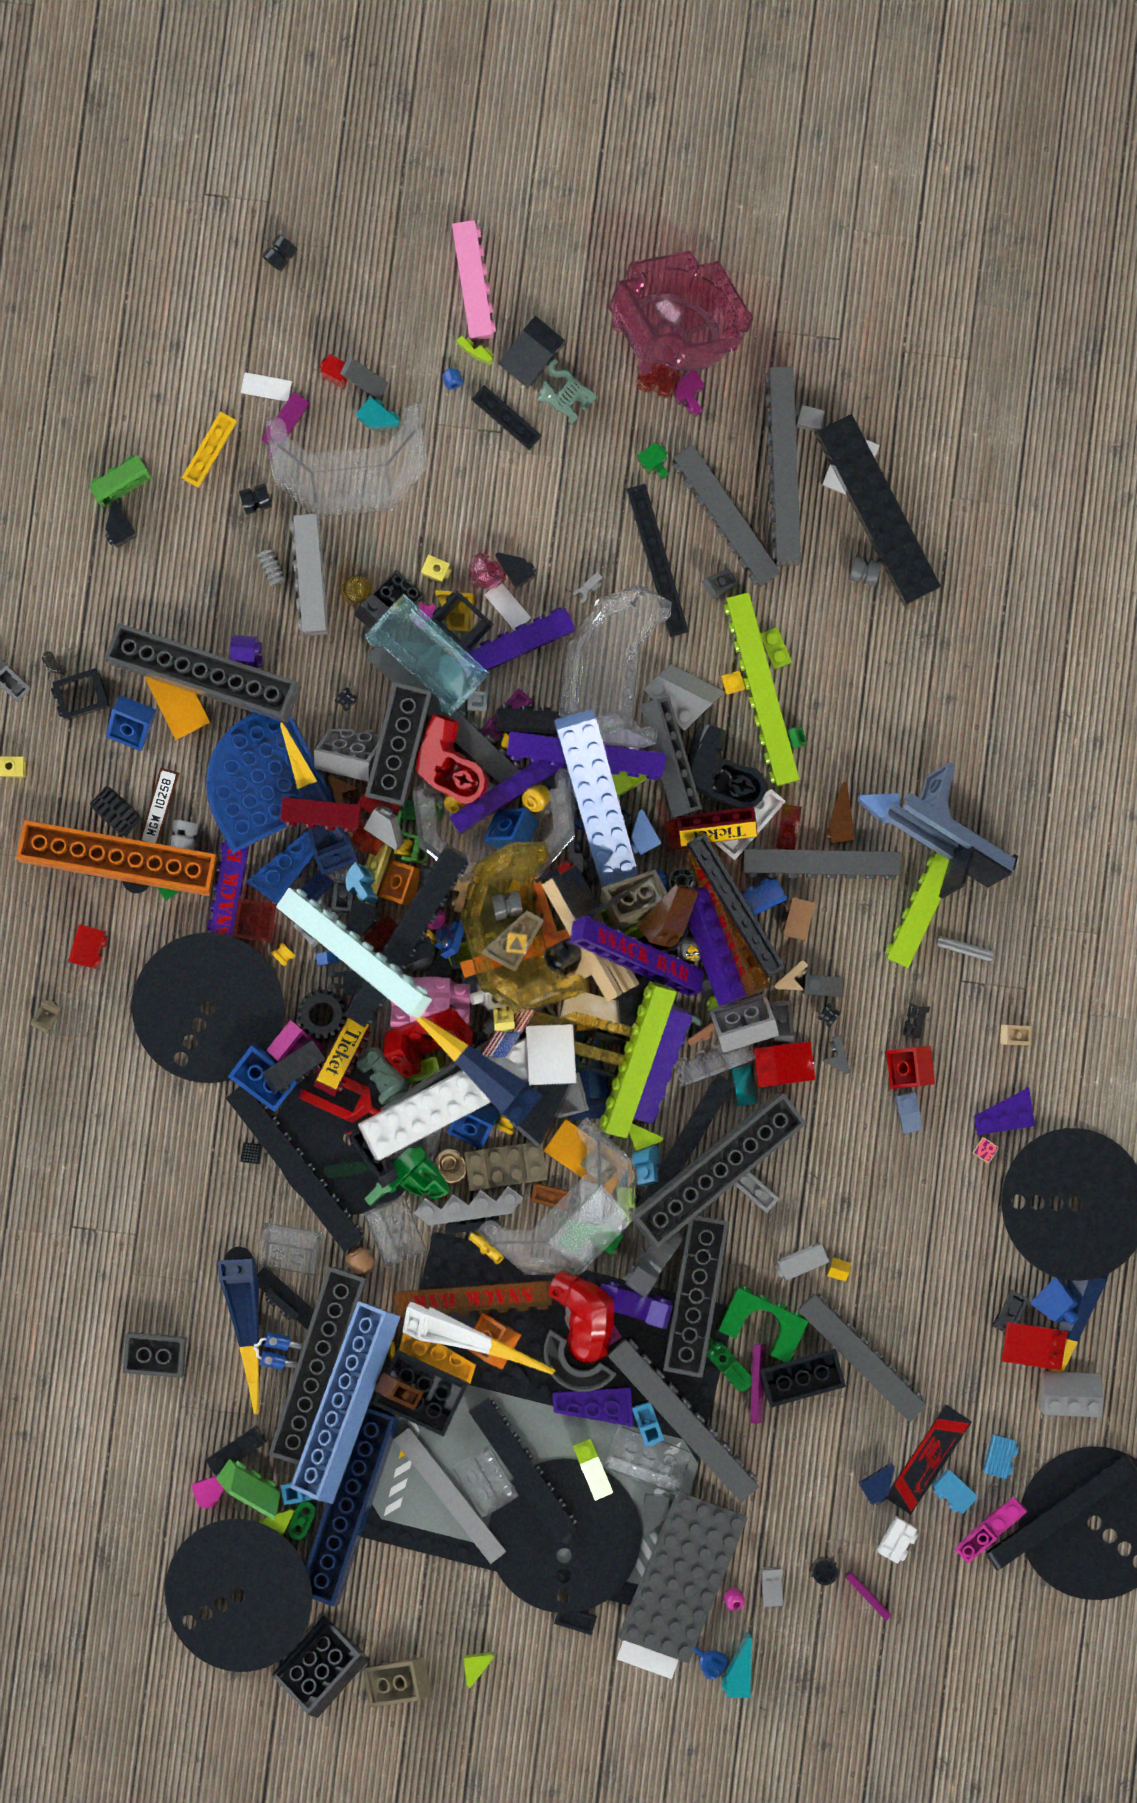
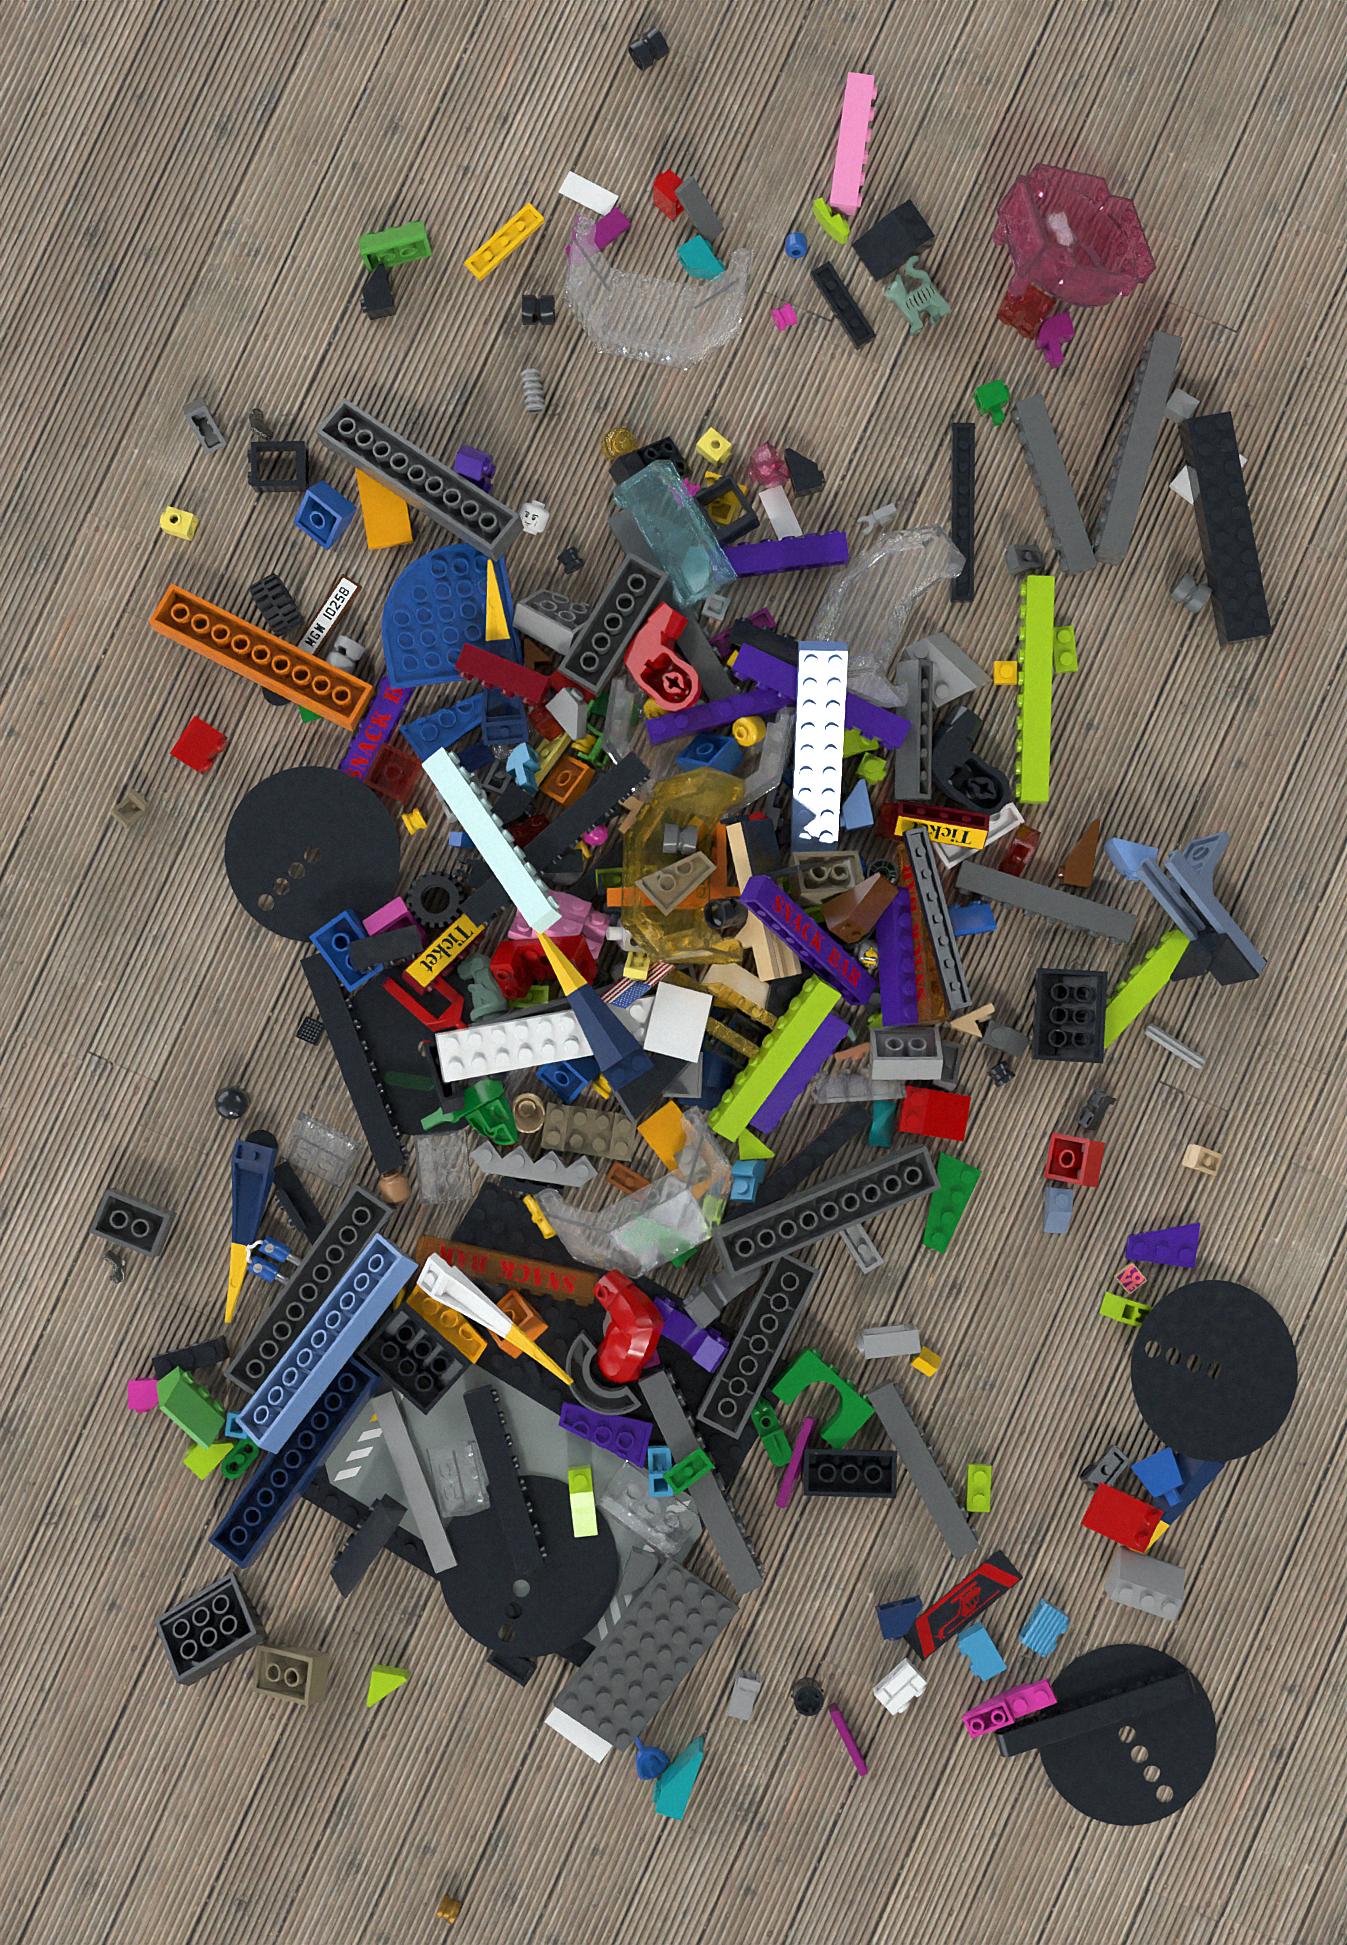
camera: 15 degrees right, 0 degrees up
(152, 1394) = (118, 1267): none -> clear smoke arm
(204, 1232) = (232, 1102): none -> black helmet
(275, 1588) = (186, 1513): black piece -> none
(304, 672) = (534, 517): none -> white head
(310, 575) = (573, 409): light grey brick -> none
(398, 1391) = (390, 1349): reddish brown slope -> none
(427, 1555) = (367, 1543): none -> black slope
(449, 938) = (603, 858): blue plate -> none
(460, 442) = (784, 317): none -> dark pink wheel
(516, 943) = (677, 884): clear tile -> none
(646, 796) = (871, 769): none -> lime brick
(669, 1413) = (688, 1470): none -> green plate
(734, 1599) = (696, 1696): dark pink piece -> none
(797, 737) = (1058, 754): green plate -> none
(798, 918) = (999, 956): medium nougat brick -> none
(818, 1132) = (949, 1201): none -> green wing
(840, 1061) = (998, 1129): dark grey slope -> none
(869, 950) = (1069, 1015): none -> black slope
(913, 1359) = (978, 1487): none -> lime plate
(986, 1177) = (1124, 1309): none -> lime slope

